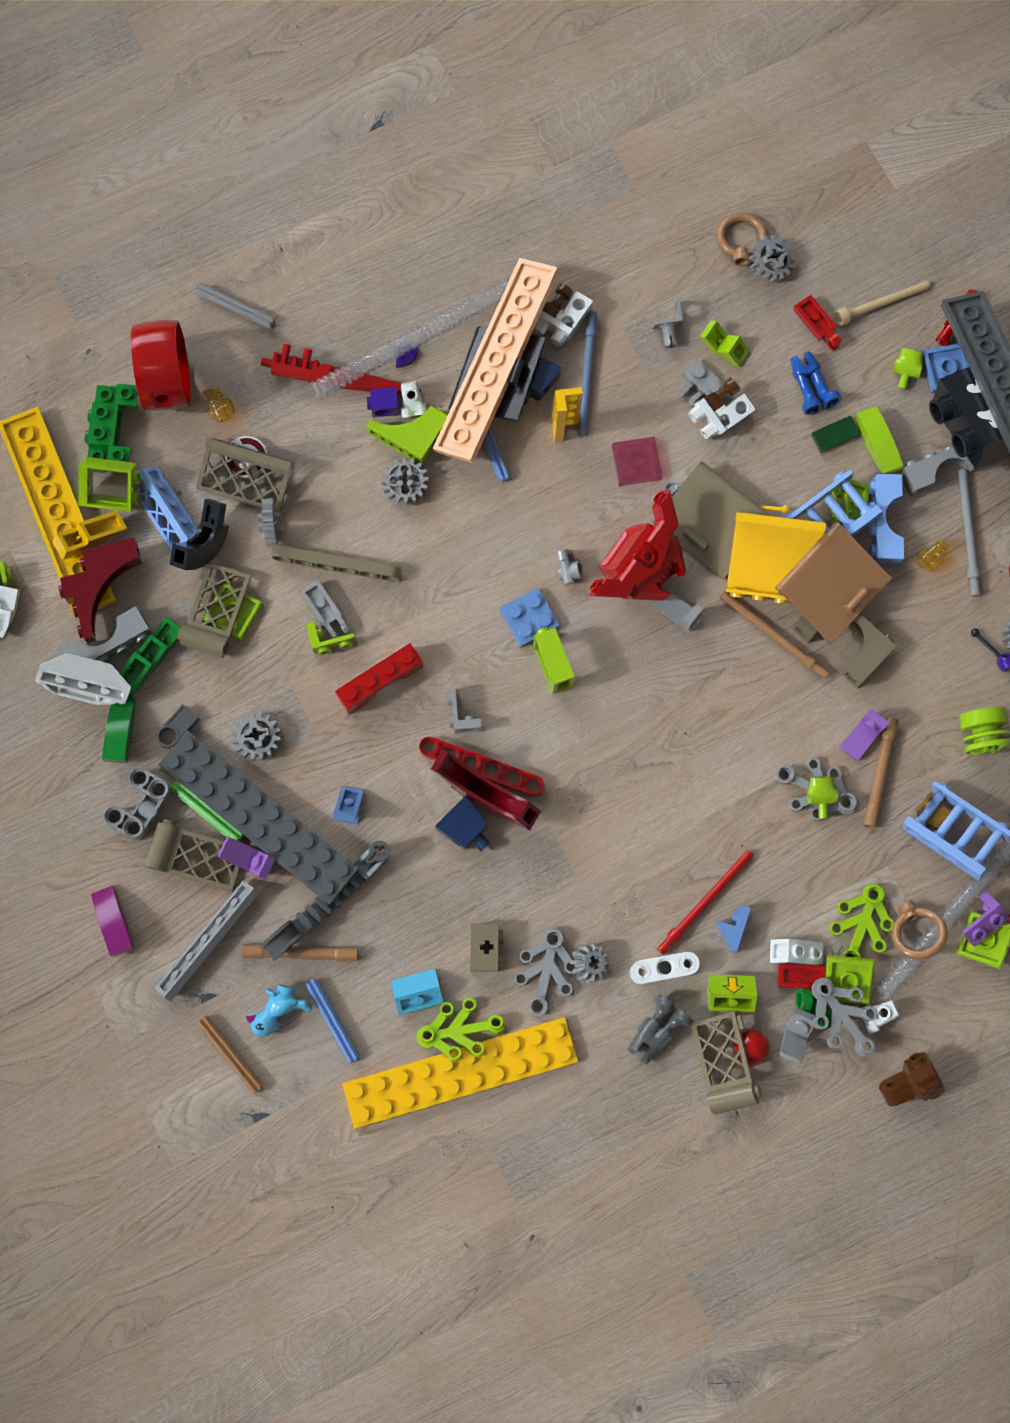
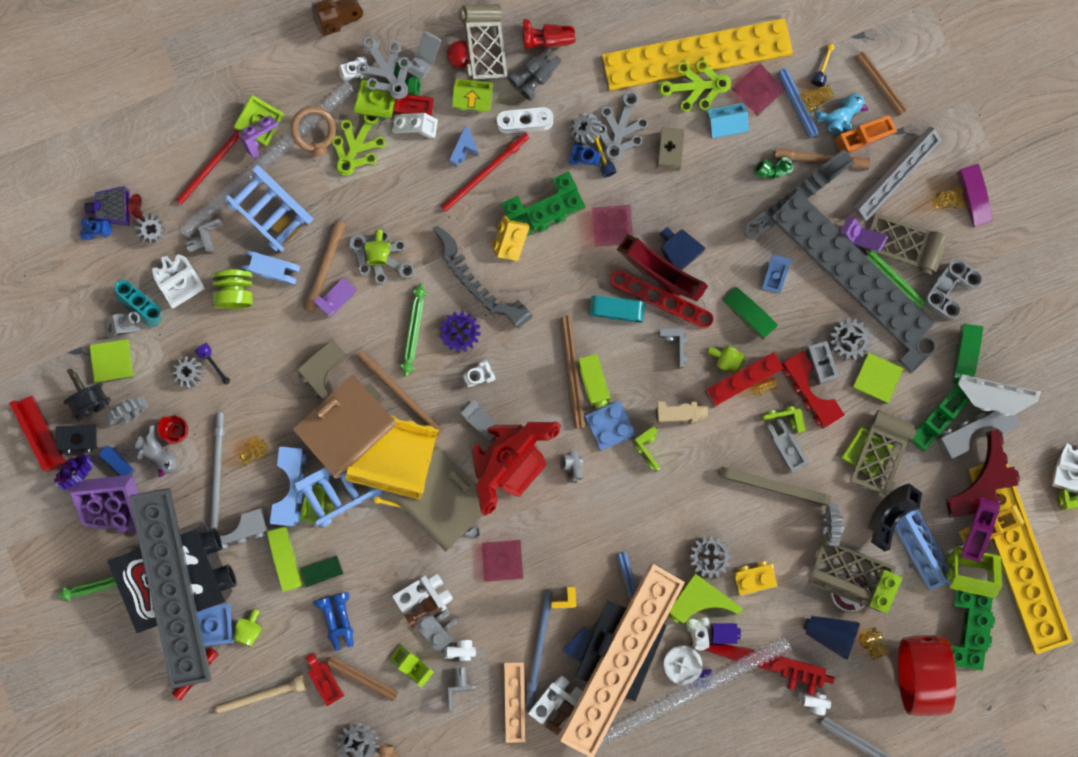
camera: 170 degrees left, 5 degrees up
(102, 525) = (980, 529): none -> magenta slope
(142, 914) = (950, 198): none -> clear yellow plate
(207, 455) = (885, 591): none -> lime bracket
(223, 696) = (877, 378): none -> lime tile
(247, 985) = (865, 135): none -> orange slope
(264, 409) = (833, 633): none -> dark blue cone
(278, 336) = (817, 702): none -> white plate
(283, 652) = (798, 370): none -> red arch
(289, 703) = (823, 363): none -> light grey brick
(307, 1055) = (819, 78): none -> dark blue hinge
(314, 1024) = (814, 98): none -> clear yellow plate
(349, 935) = (782, 167): none -> green arm
(353, 464) = (755, 578): none -> yellow bracket
(353, 673) = (764, 386): none -> clear yellow pin
(376, 757) = (750, 313): none -> green slope
(381, 1034) = (758, 89): none -> clear pink plate
(397, 703) = (728, 359): none -> lime piece
(427, 366) = (682, 665): none -> white tile
(449, 630) = (681, 413): none -> tan hips
(485, 606) = (648, 437): none -> lime bracket
(533, 749) = (617, 309): none -> teal beam
(546, 848) = (611, 224): none -> clear pink plate
(558, 919) = (607, 168): none -> dark blue hinge
(580, 680) = (572, 372): none -> medium nougat axle
(592, 930) = (581, 154): none -> blue plate
(608, 315) = (514, 702): none -> light nougat plate
(626, 857) = (550, 210): none -> green bracket
(641, 1080) = (550, 36): none -> red piece
(650, 734) = (516, 313): none -> dark grey piece
(667, 818) = (509, 239): none -> yellow bracket
(669, 361) = (463, 650): none -> white plate
(681, 662) = (481, 372): none -> white plate
(713, 695) = (458, 342): none -> dark purple gear
(767, 707) = (413, 330): none -> bright green wheel
(775, 327) = (362, 678): none -> medium nougat axle
(944, 763) = (270, 267): none -> light blue piece

